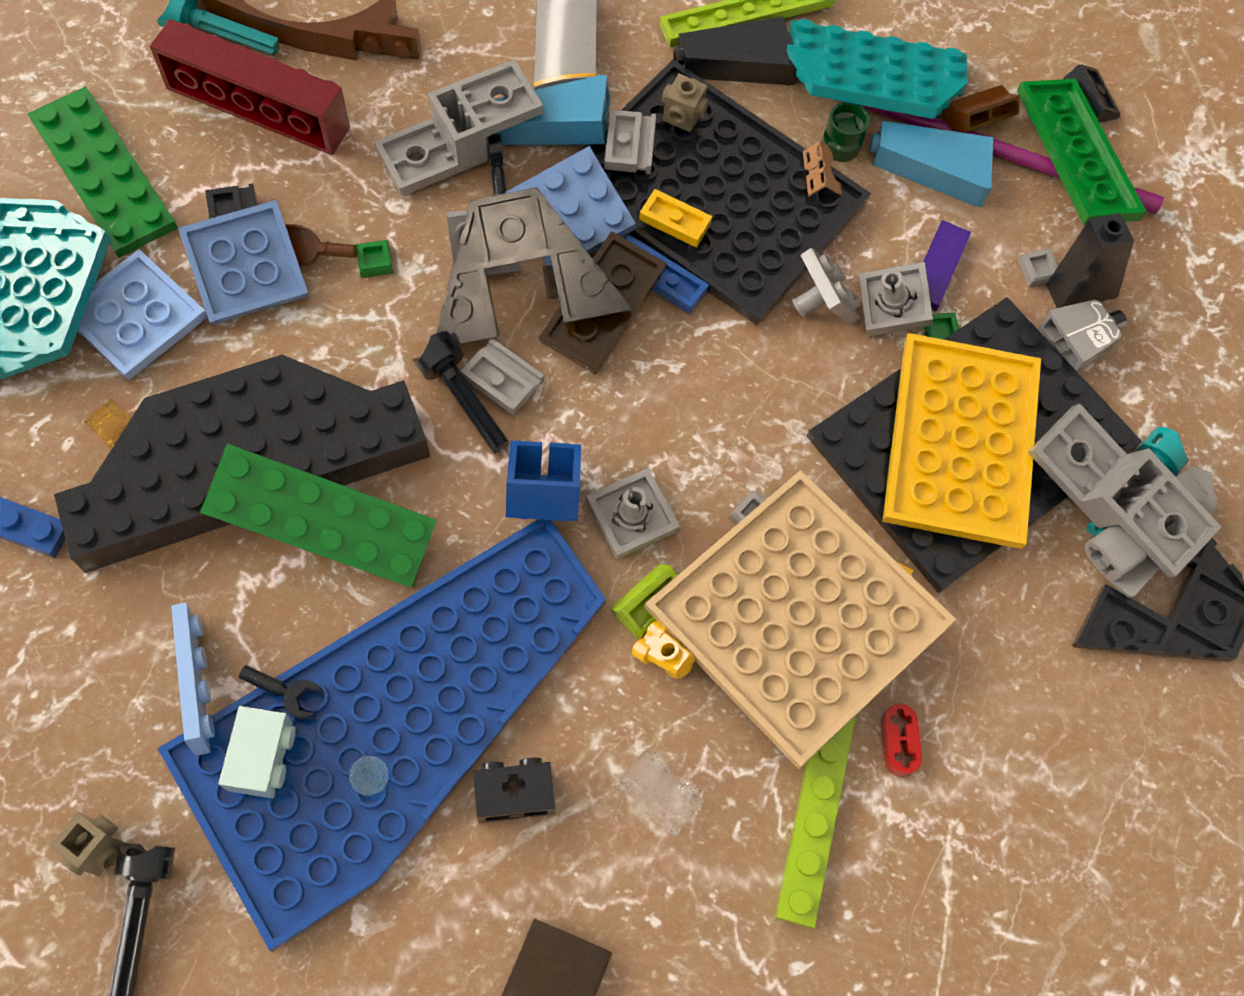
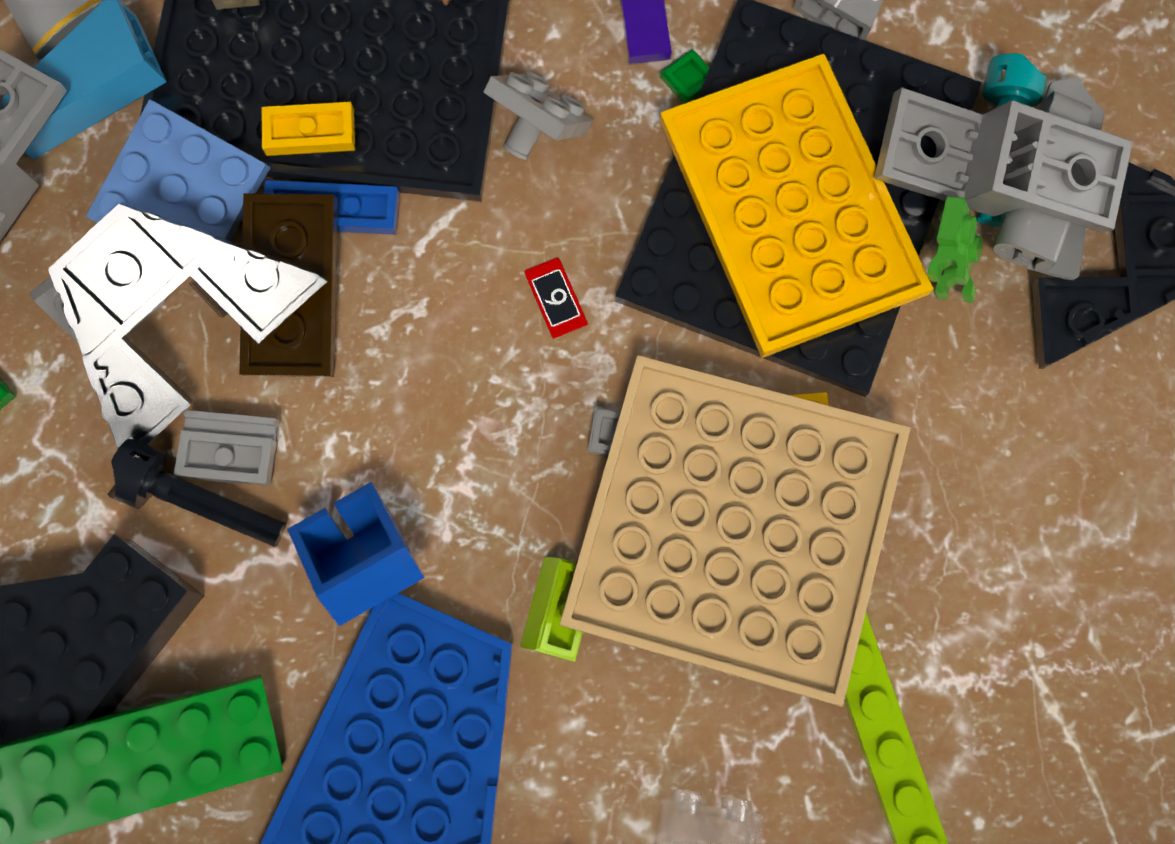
camera: 25 degrees left, 10 degrees up
(496, 161) = (49, 179): black piece -> none
(630, 141) = (194, 62): light grey plate -> none
(631, 514) = (468, 492): light grey plate -> none
(664, 652) = (603, 663): yellow plate -> none
(768, 411) = (555, 298): none -> sticker
(894, 288) = (610, 63): light grey plate -> none
(909, 739) = (932, 587): red beam -> none
(1060, 528) = (956, 250): none -> bright green plate

